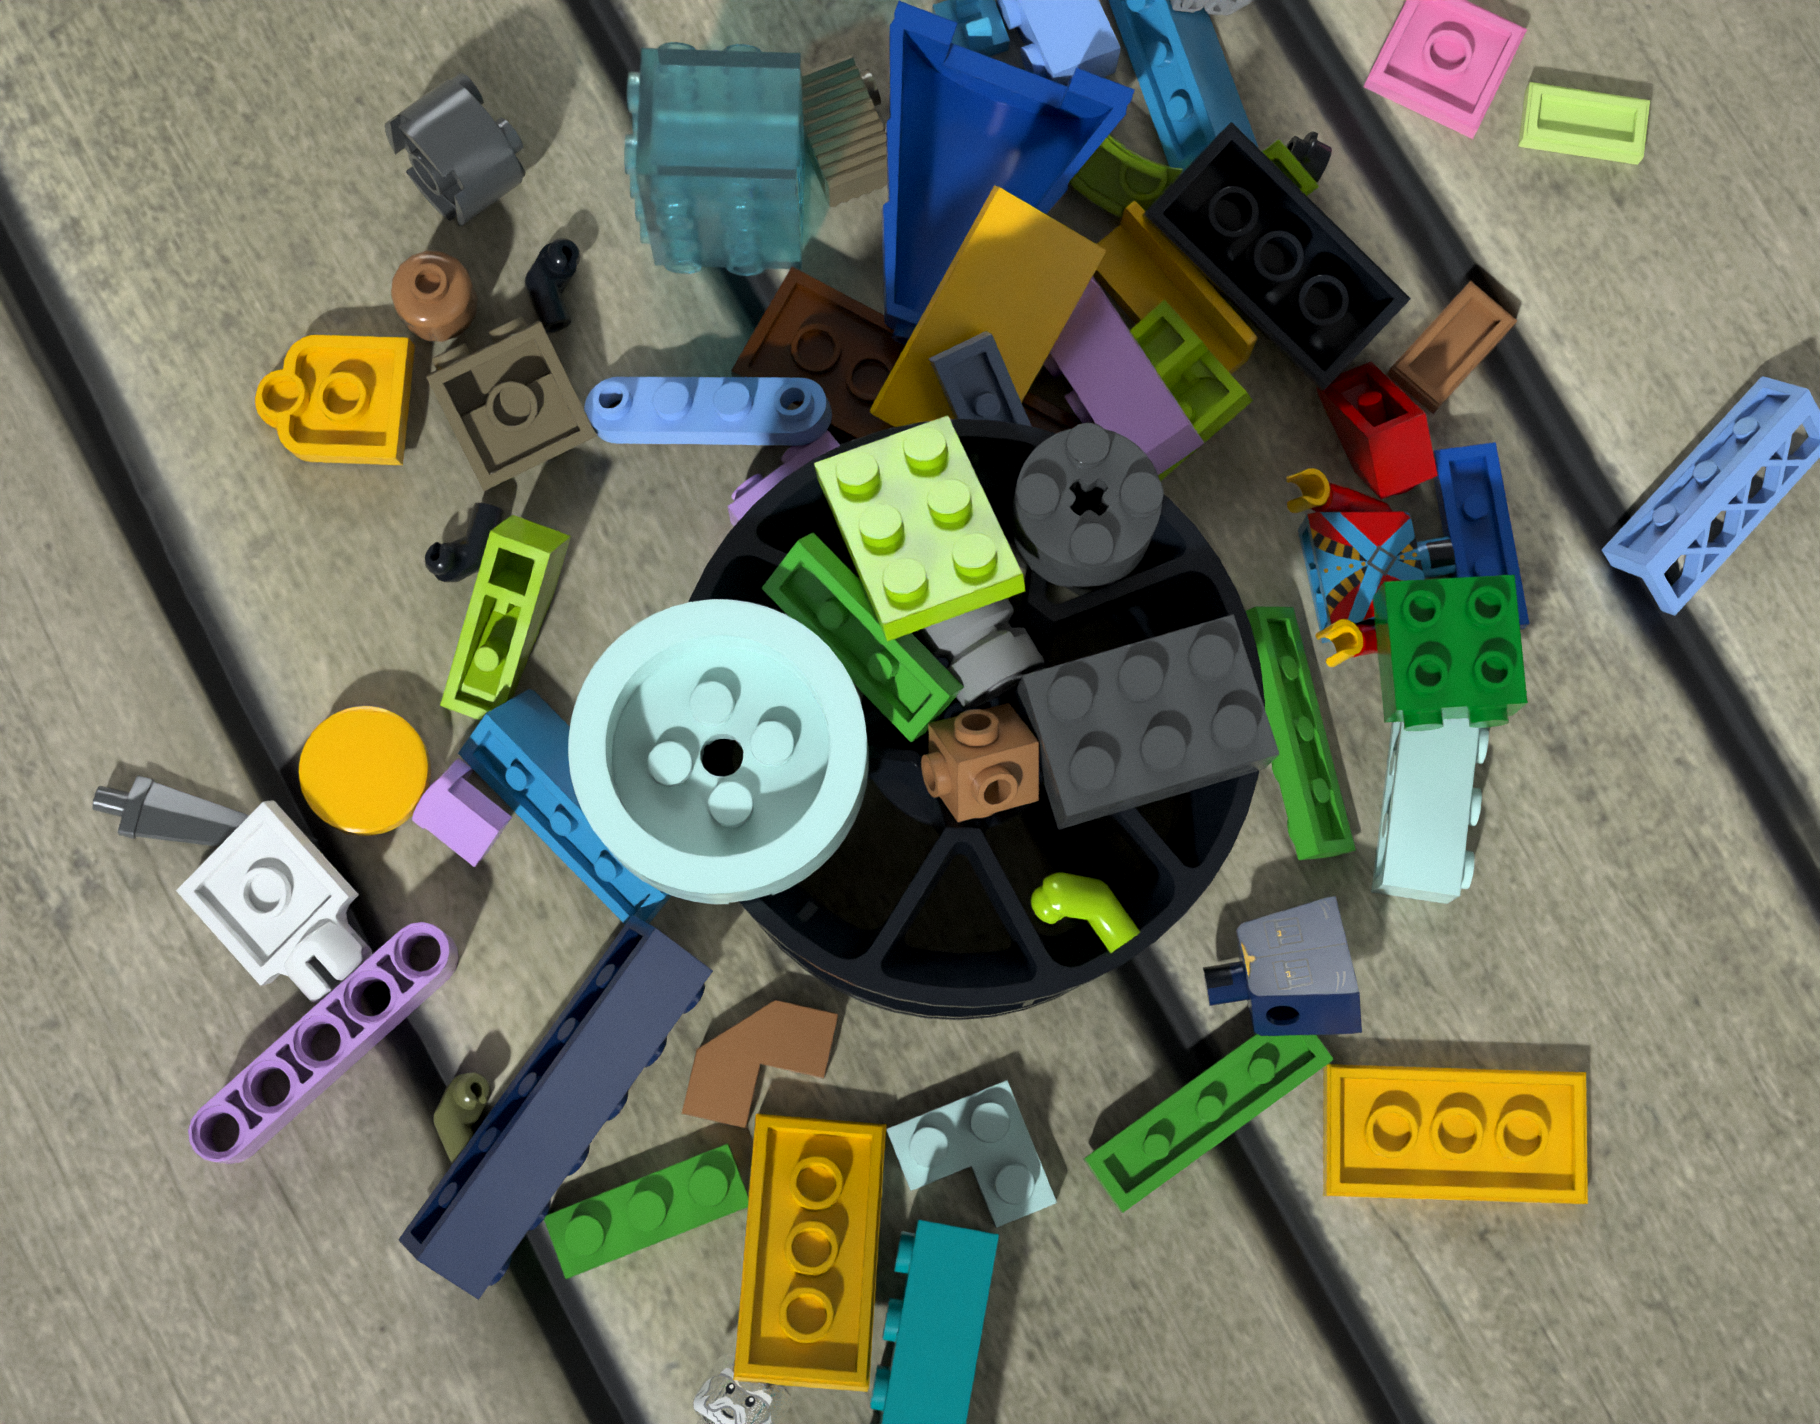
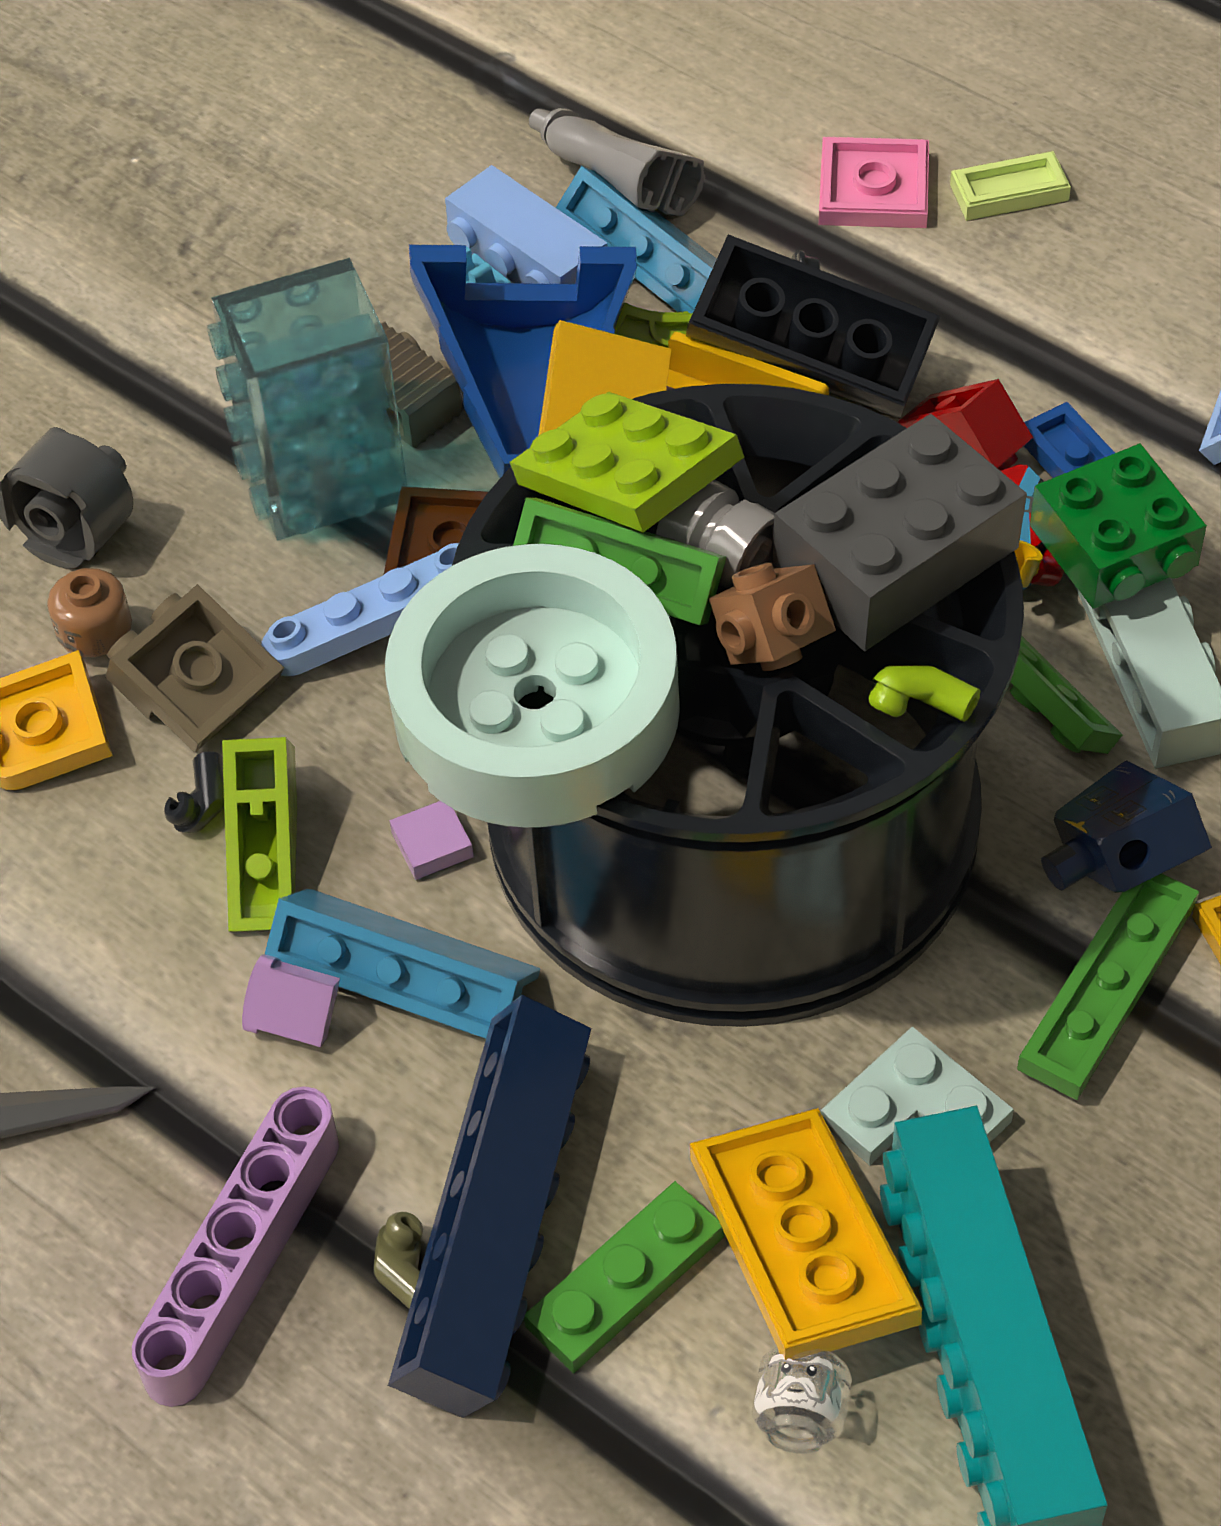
camera: 15 degrees left, 25 degrees down
(278, 905) = (139, 1138): white plate -> none
(364, 770) = (179, 1004): yellow tile -> none
(548, 280) = (189, 567): black arm -> none
(729, 1065) = (673, 1080): medium nougat tile -> none
(1084, 468) = (768, 393): dark grey brick -> none
(1452, 347) = (994, 351): medium nougat tile -> none

